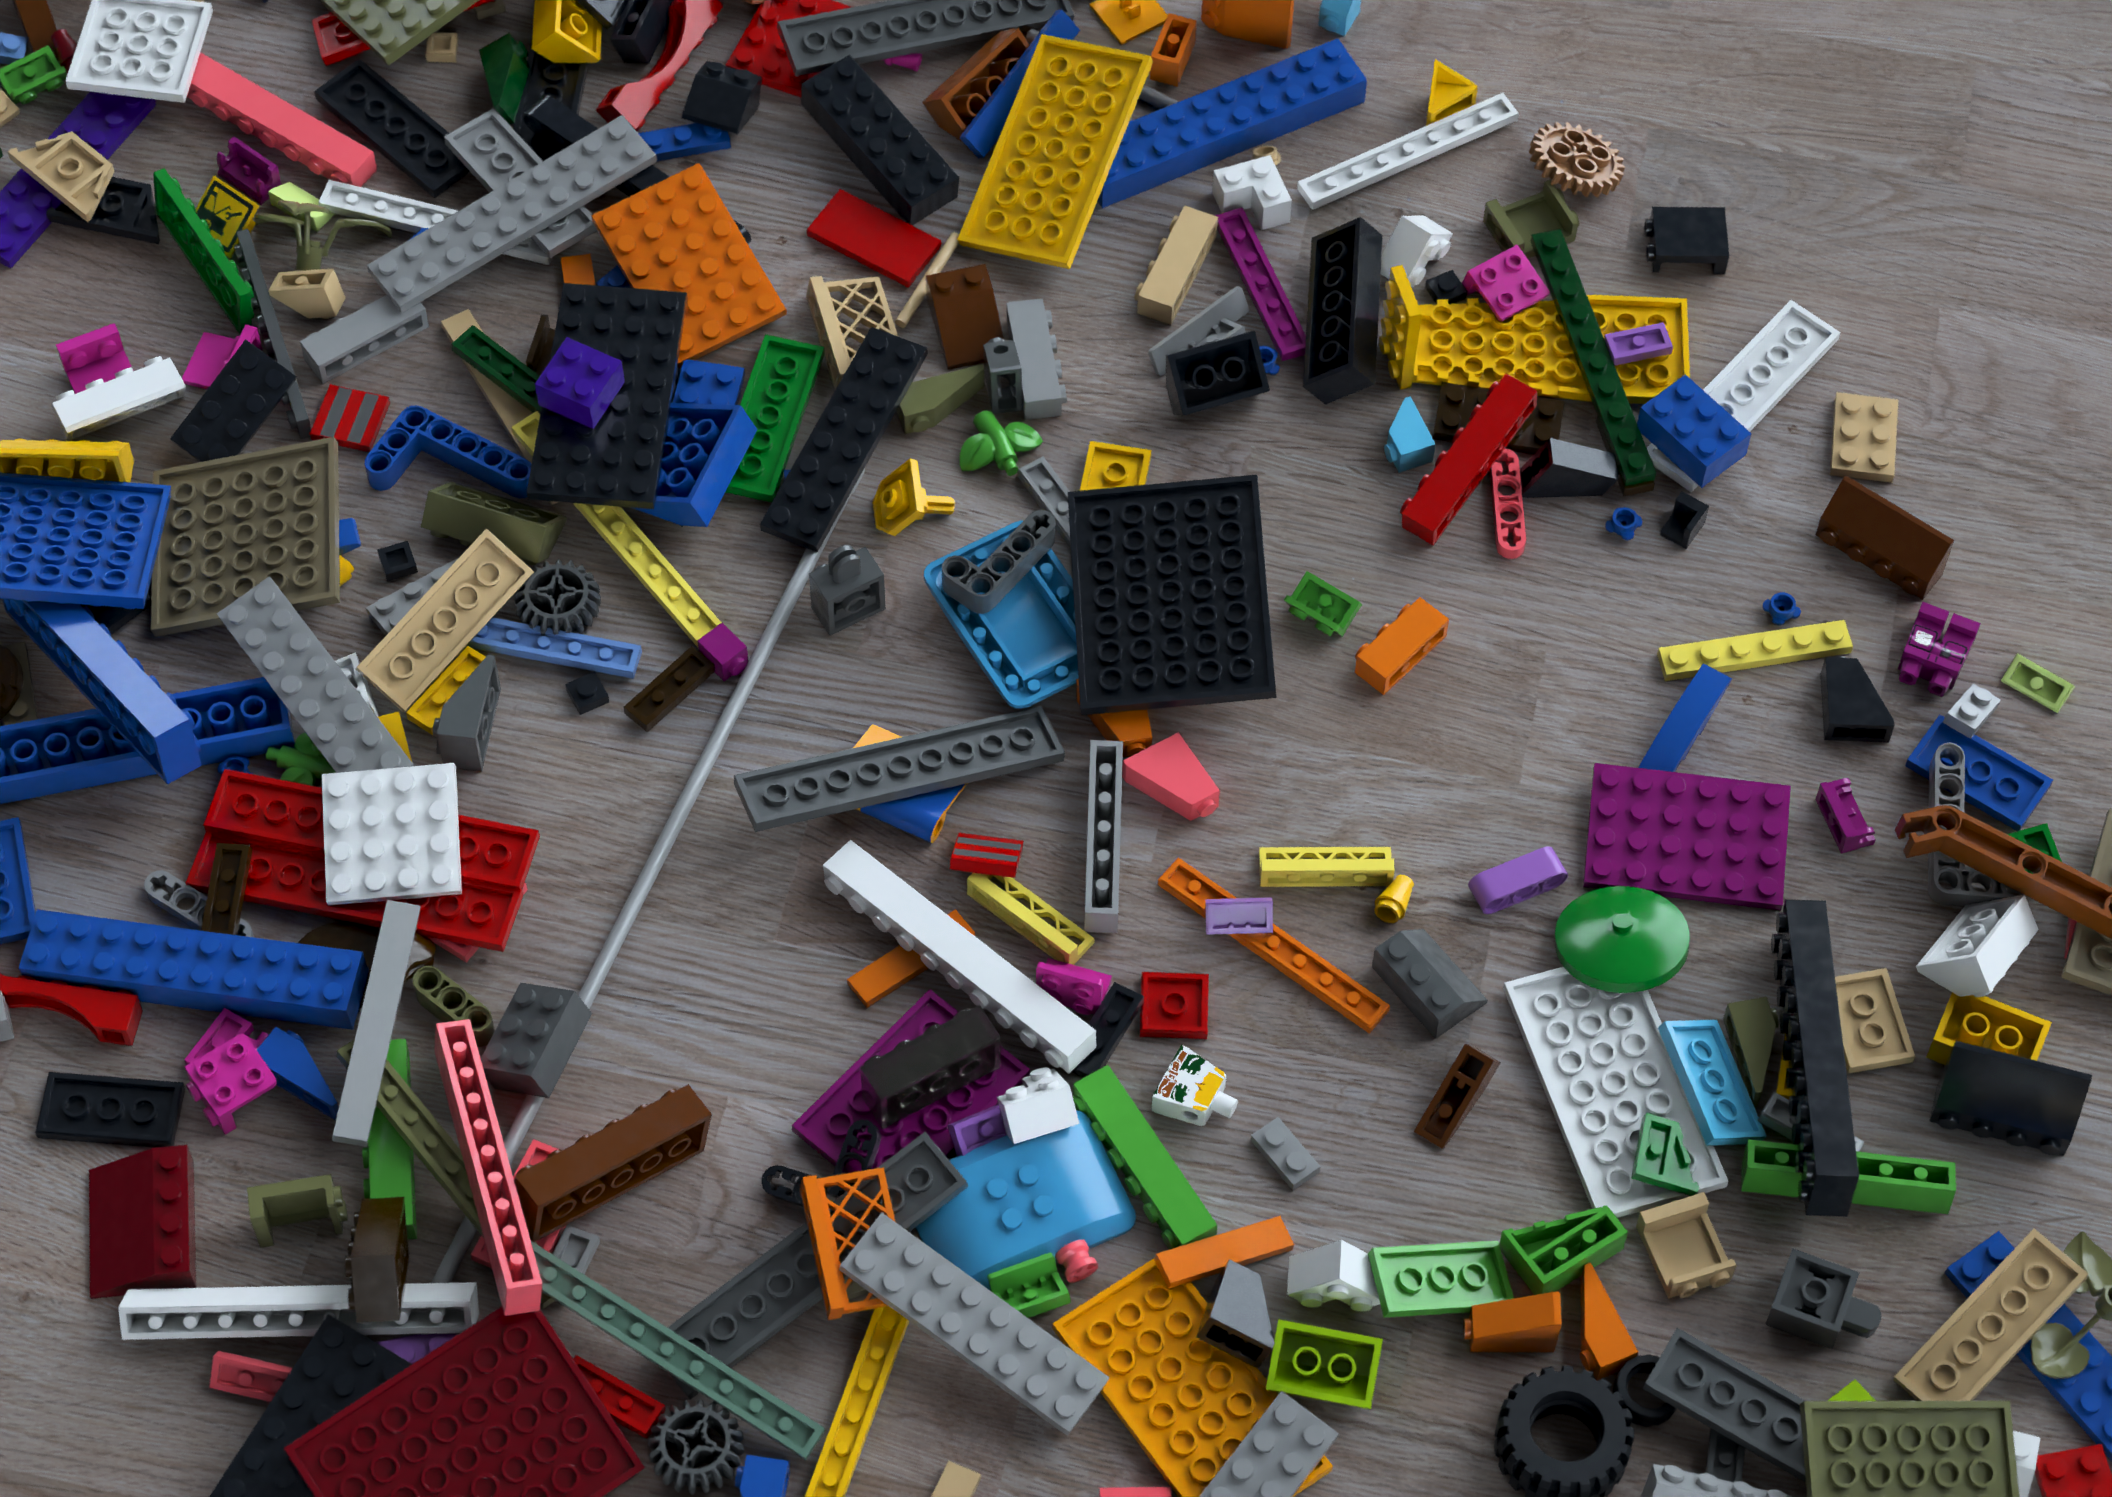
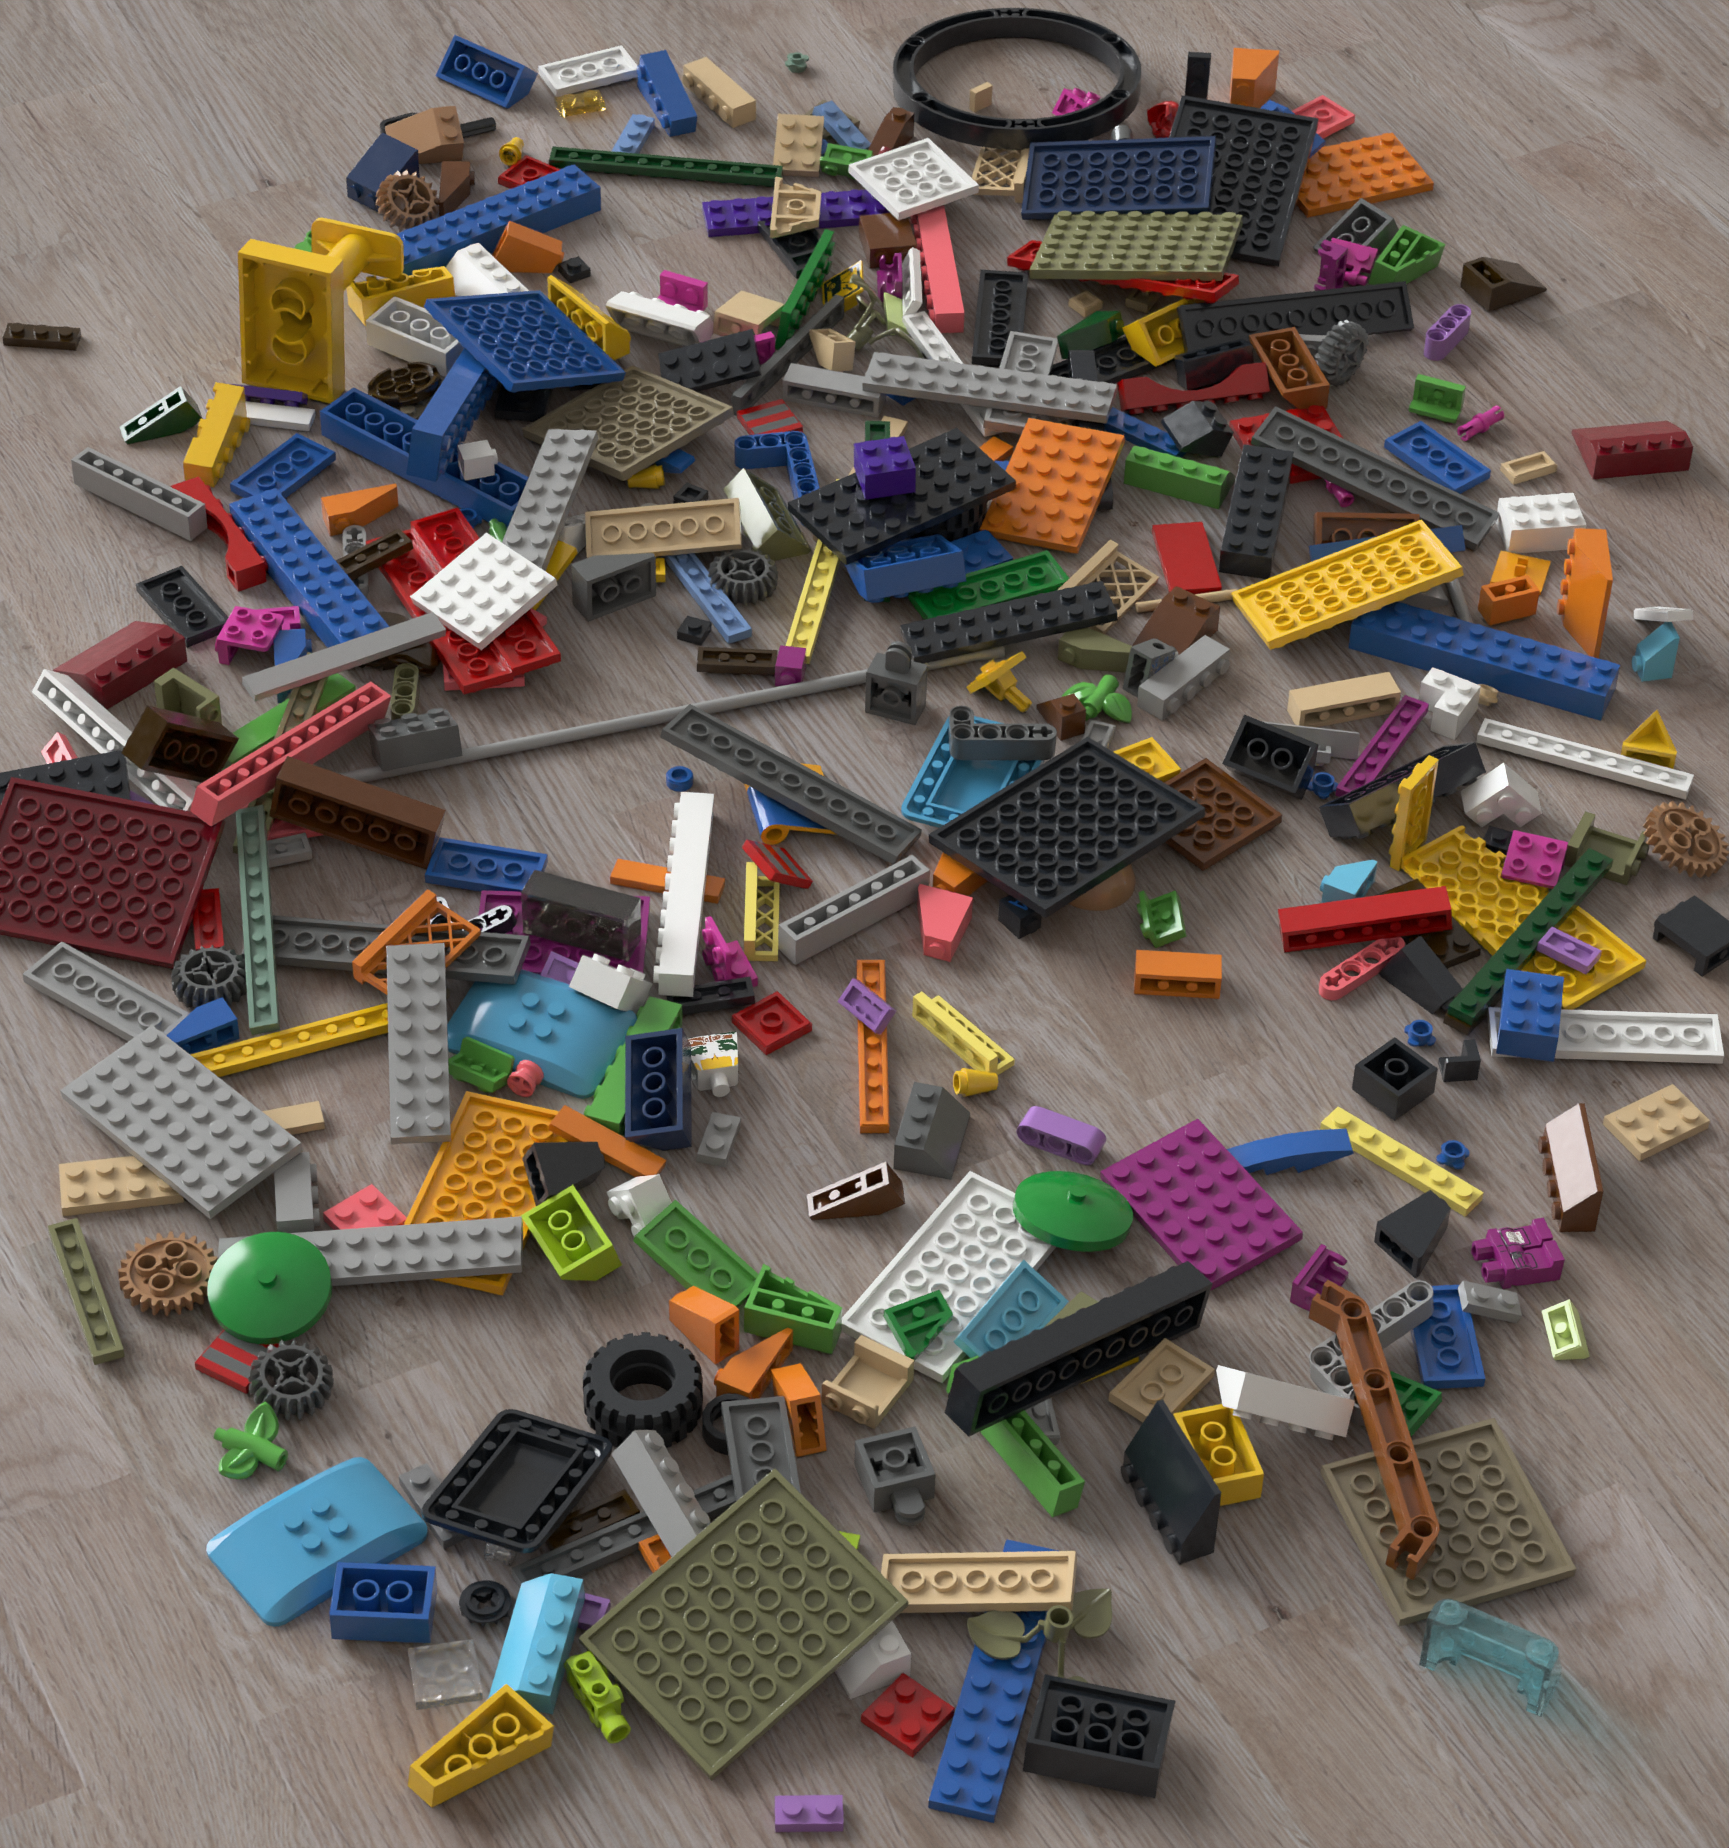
camera: 50 degrees right, 15 degrees down
(121, 867) = (358, 507): none -> orange slope
(188, 132) = (885, 236): none -> reddish brown brick
(190, 326) = (746, 312): none -> tan panel
(200, 701) = (476, 459): none -> white brick
(291, 167) = (911, 282): none -> white tile
(763, 1098) = (482, 866): none -> blue plate
(765, 159) = (1177, 477): none -> bright green slope
(781, 850) = (679, 778): none -> blue tile
(991, 484) = (1065, 715): none -> reddish brown slope
(1206, 1161) = (658, 1089): none -> dark blue slope
(1221, 450) = (1231, 815): none -> reddish brown plate
(1221, 716) = (1018, 917): none -> black brick
(1659, 1312) = (802, 1407): none -> orange slope
(1672, 583) = (1394, 1078): none -> black brick

